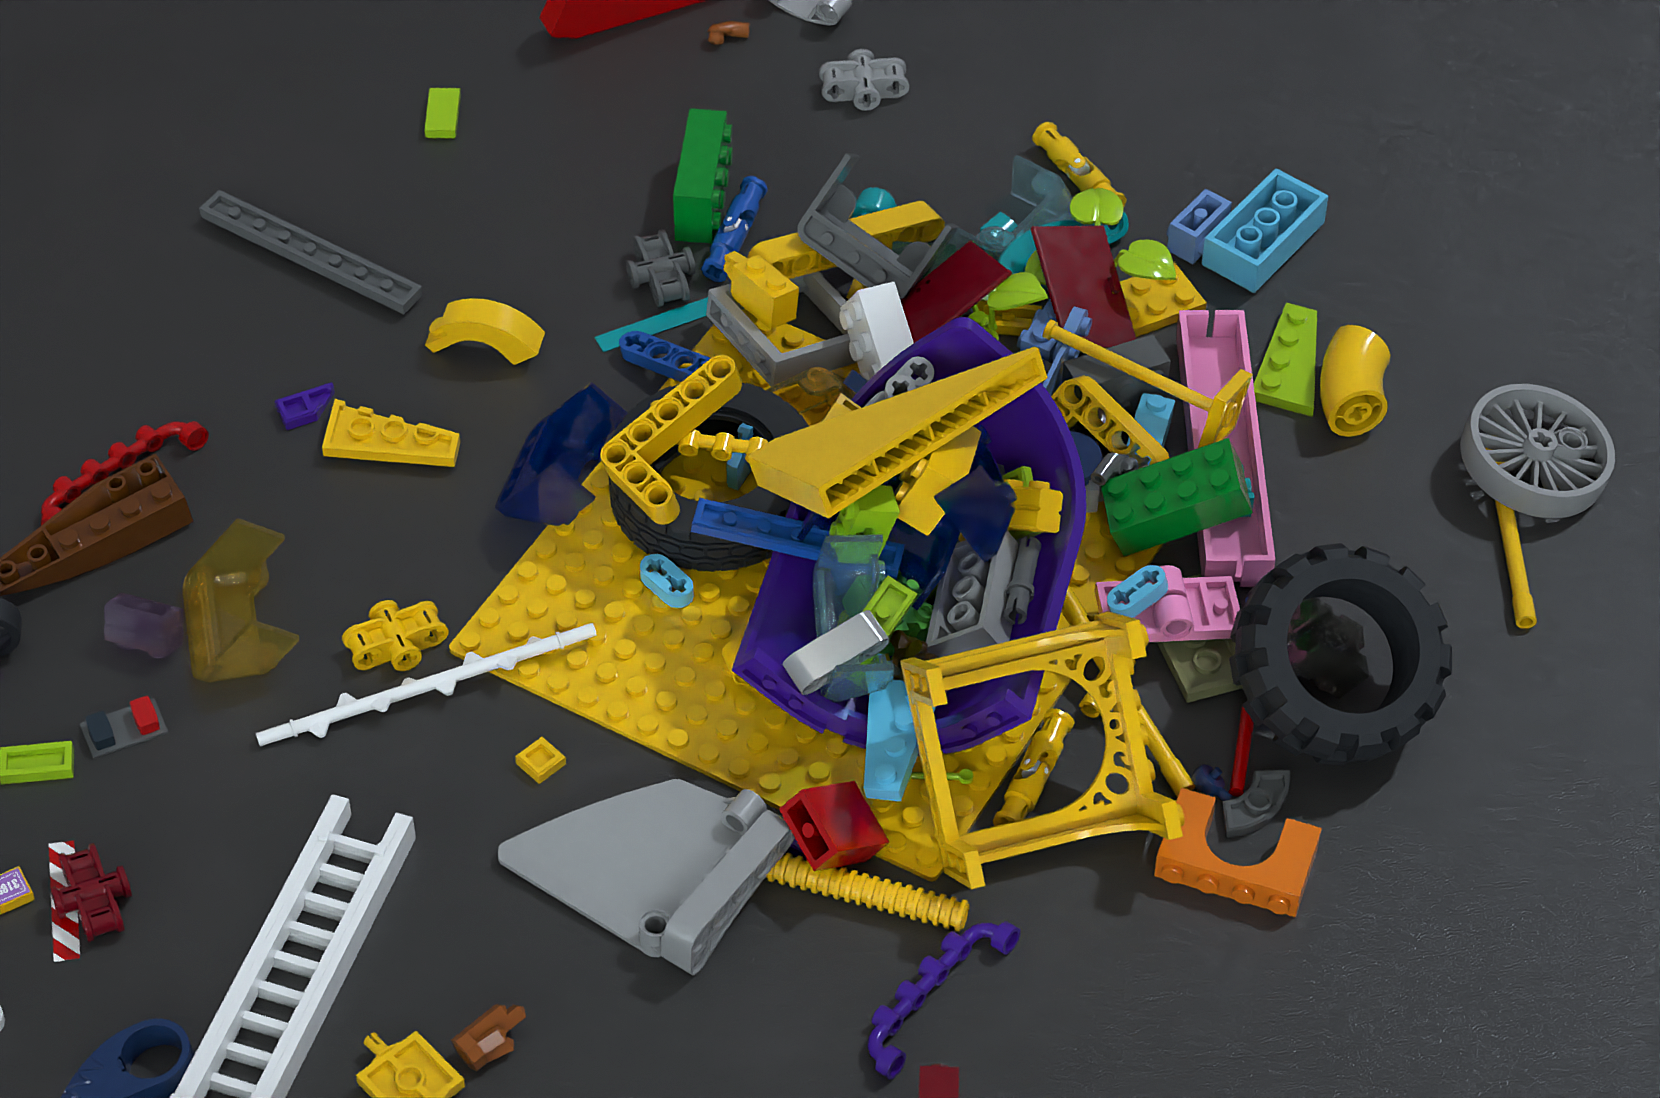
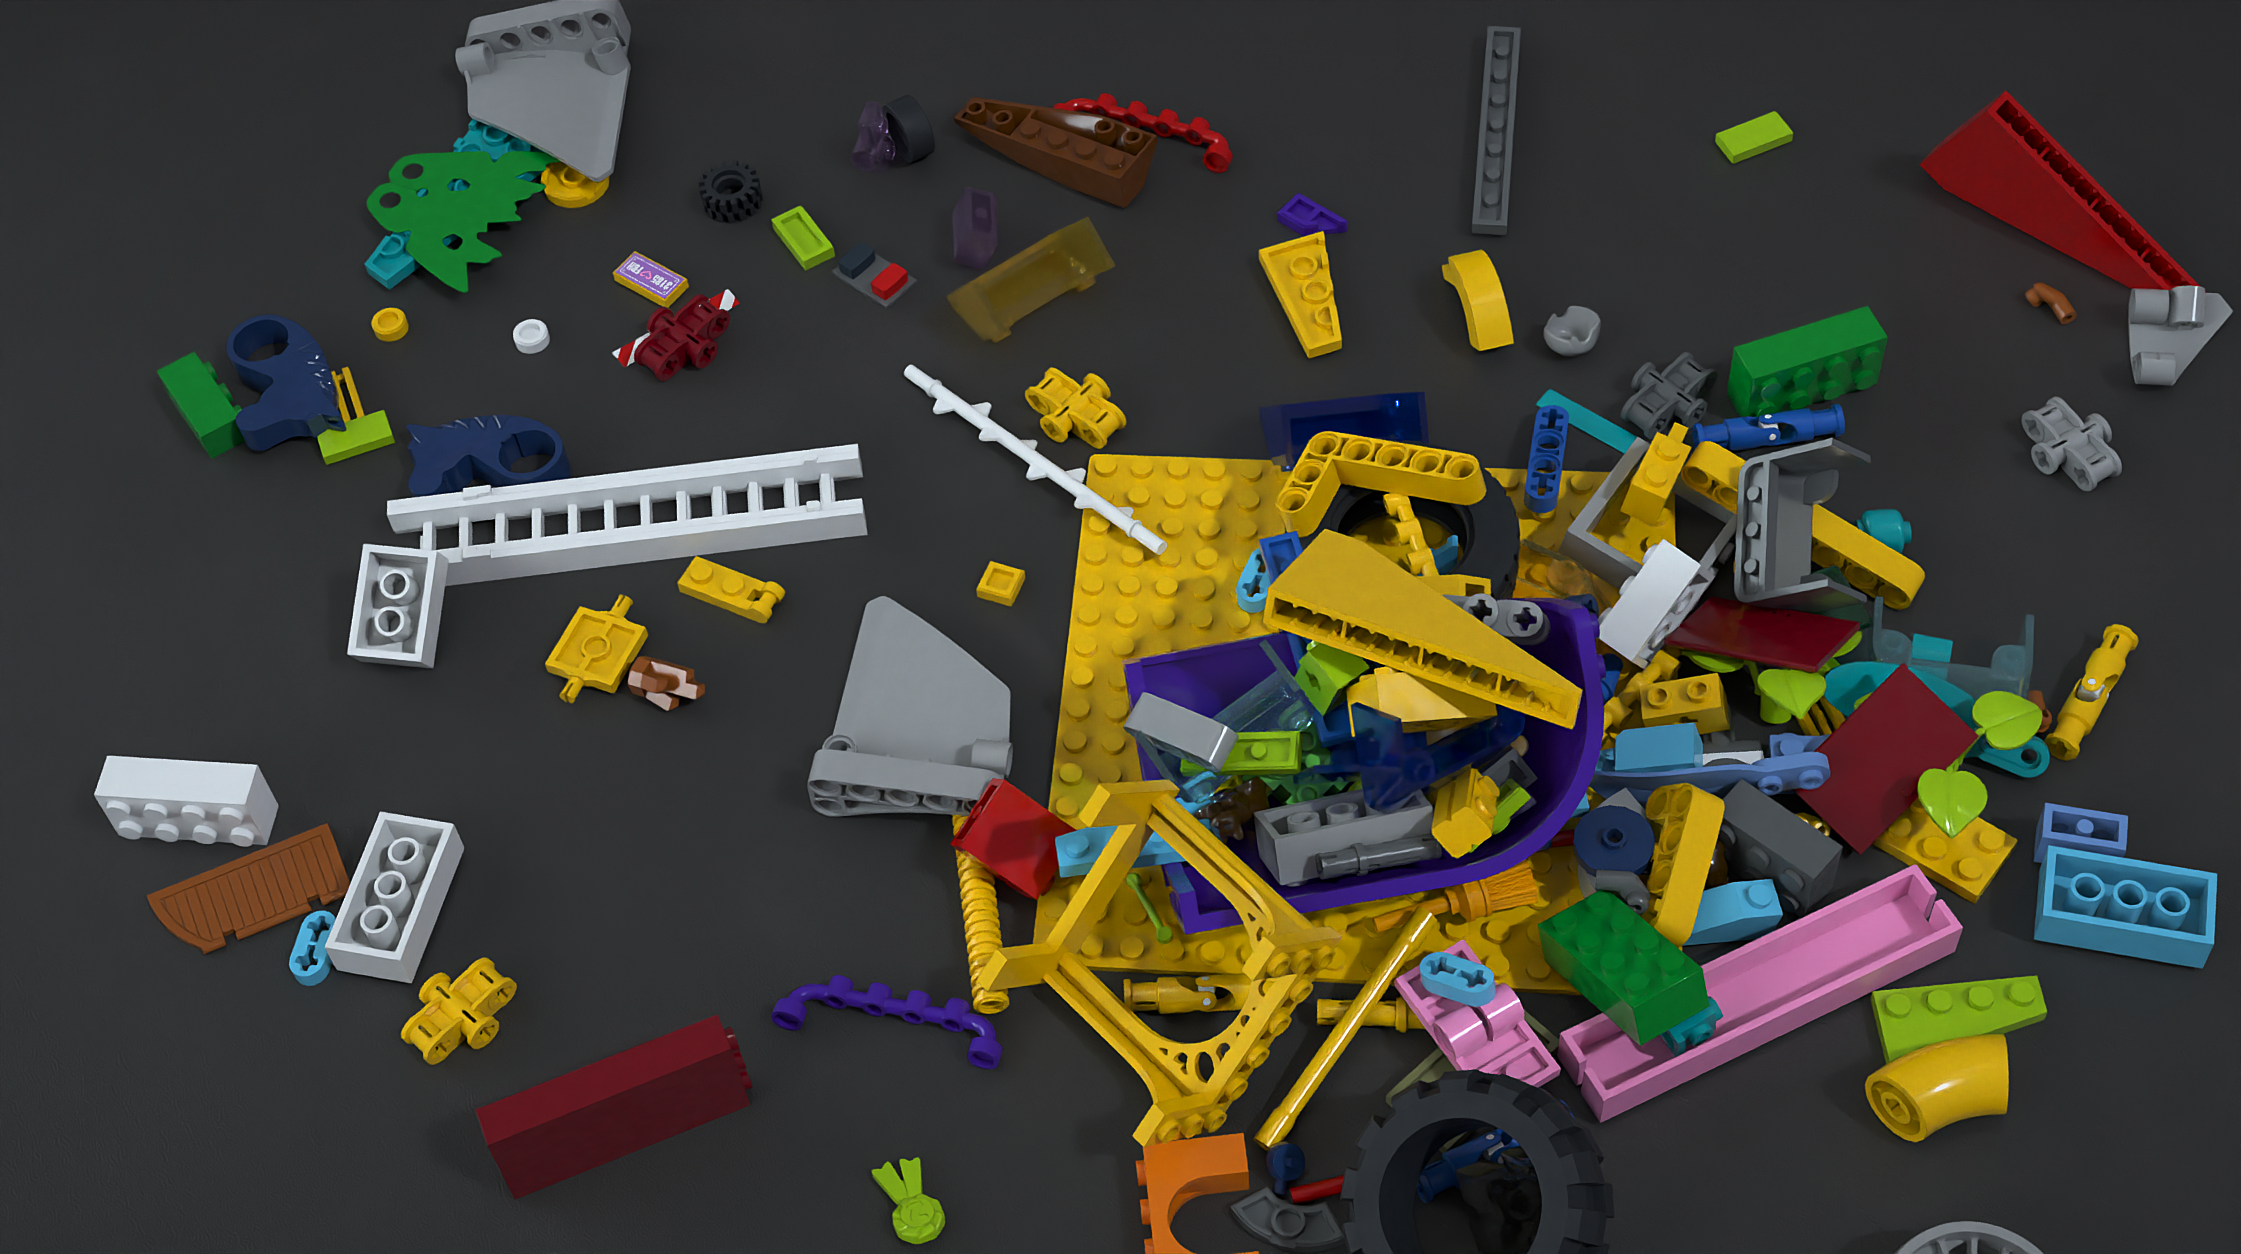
camera: 70 degrees right, 5 degrees up
(410, 957) = (730, 589): none -> yellow plate
(559, 292) = (1573, 332): none -> light grey hair
(1129, 1039) = (917, 1215): none -> lime piece
(1222, 410) = (1760, 954): yellow tile -> none

